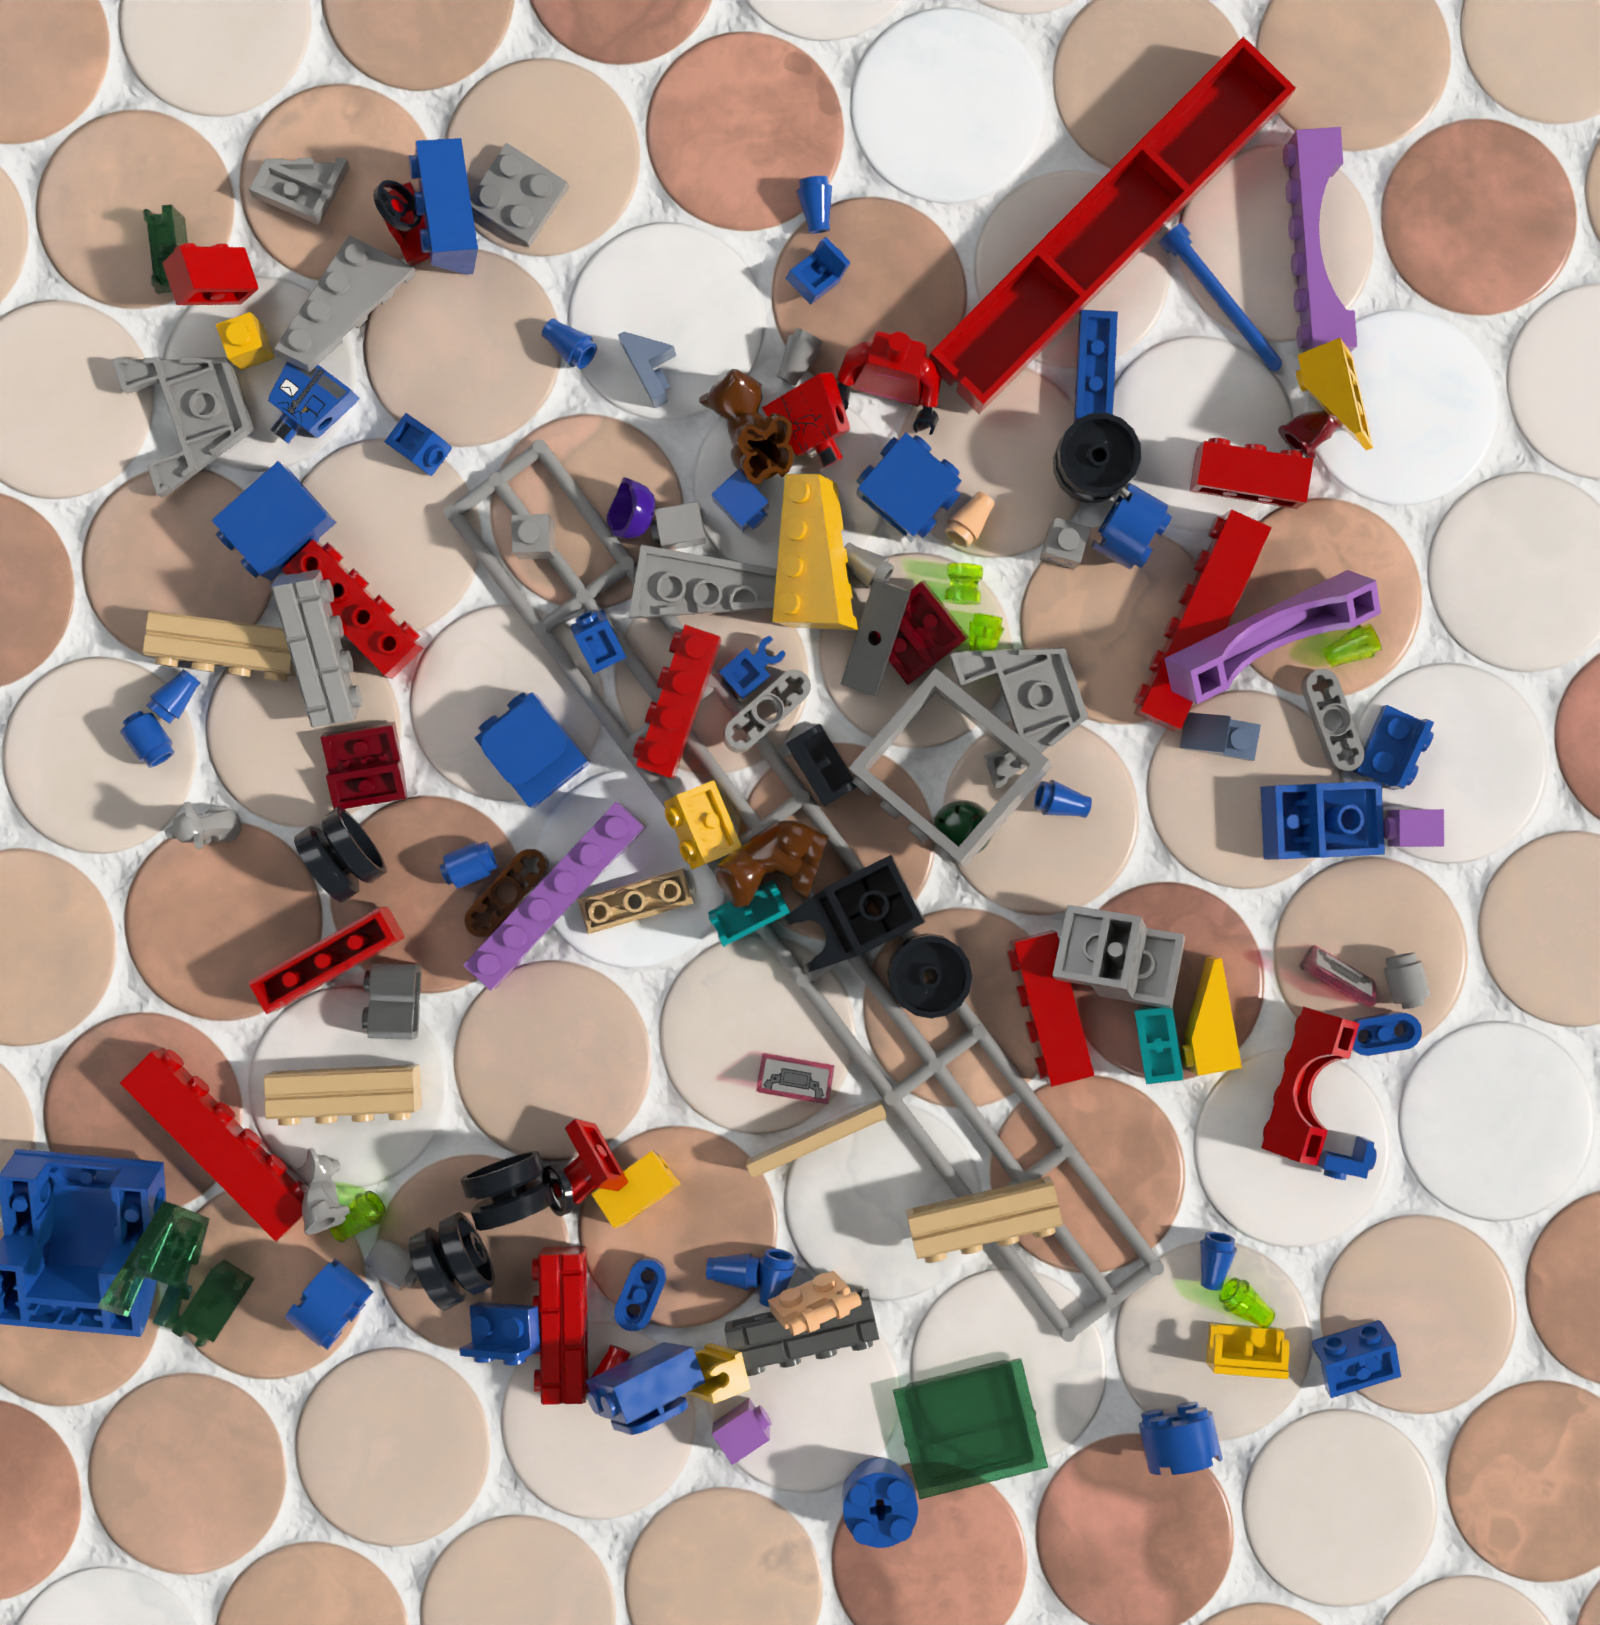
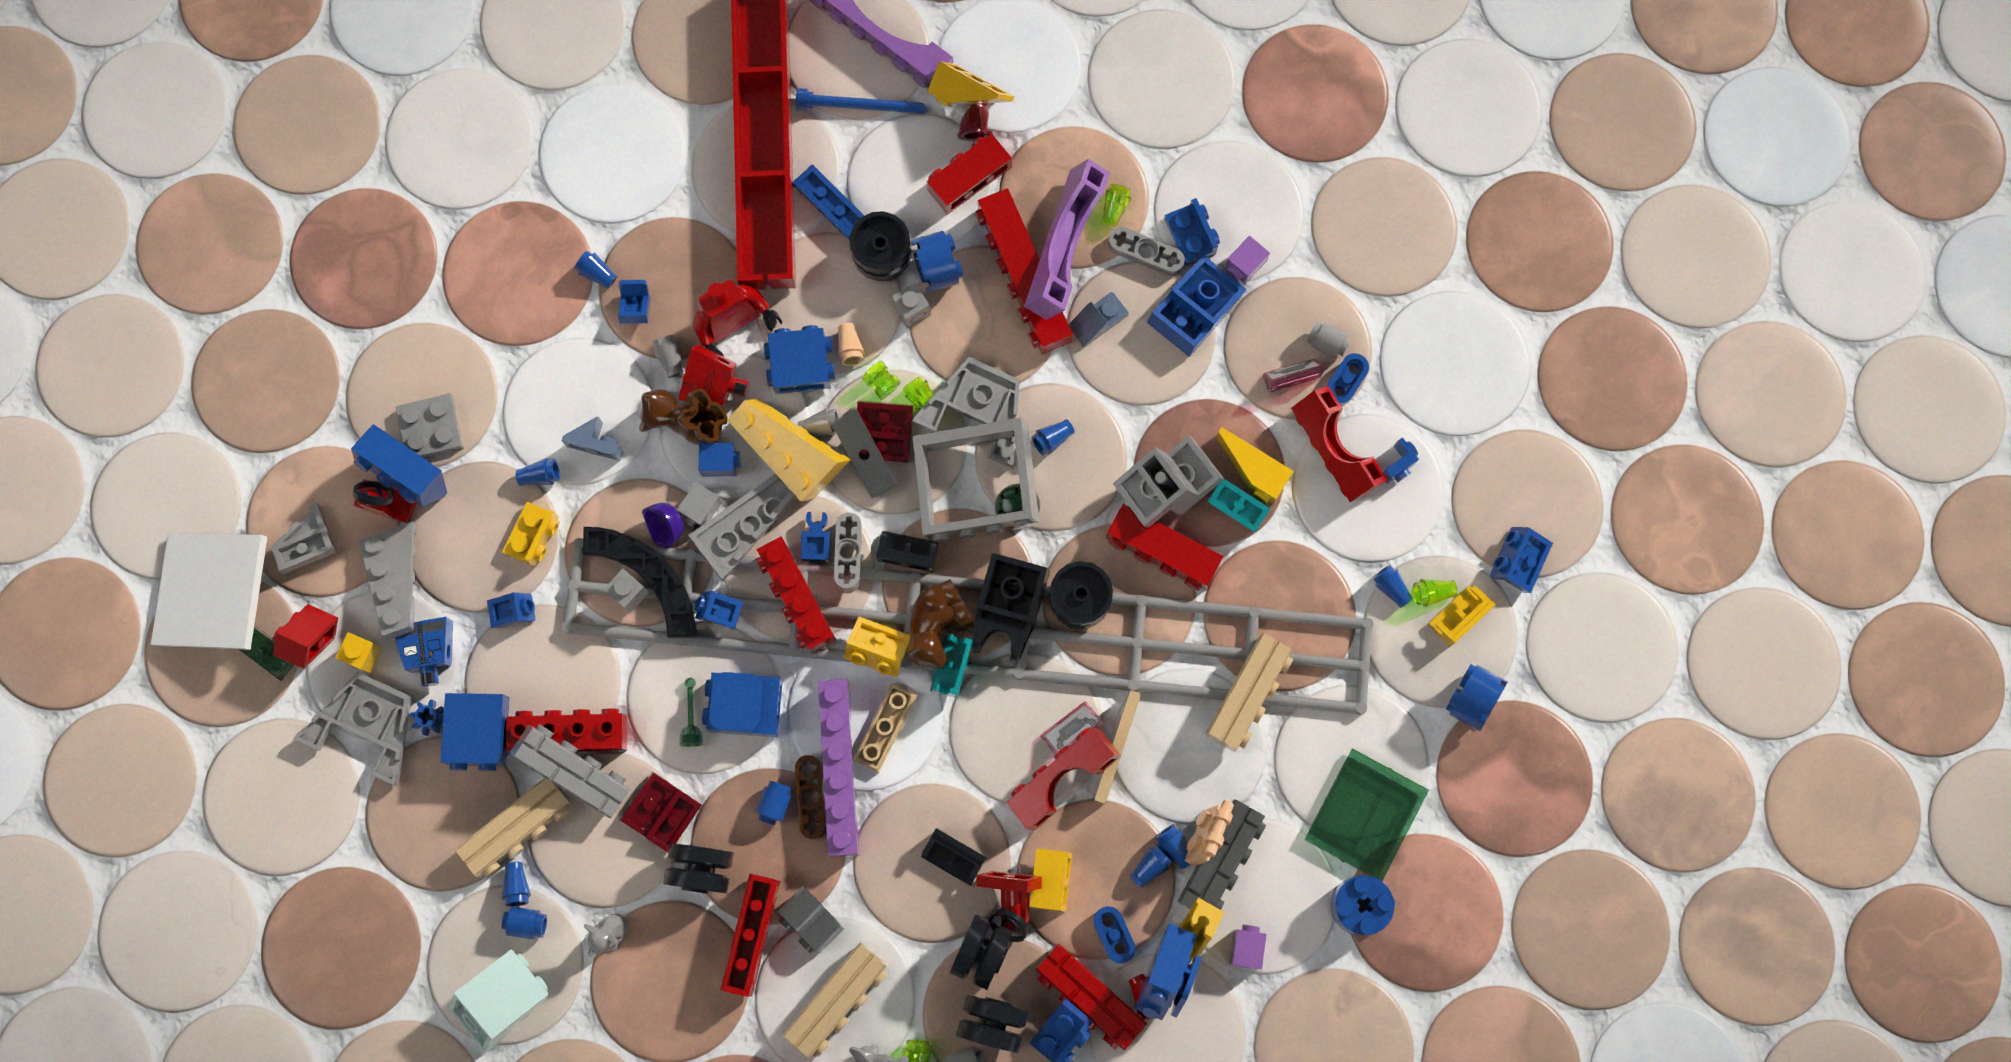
camera: 45 degrees left, 10 degrees down
(59, 783) = (498, 999): none -> light aqua slope
(169, 142) = (209, 591): none -> white tile
(237, 464) = (430, 724): none -> blue gear
(461, 725) = (690, 735): none -> clear green hinge
(506, 393) = (531, 534): none -> yellow bracket
(575, 1078) = (953, 857): none -> black hinge
(578, 543) = (653, 569): none -> black tile
(783, 1125) = (1035, 801): none -> red arch

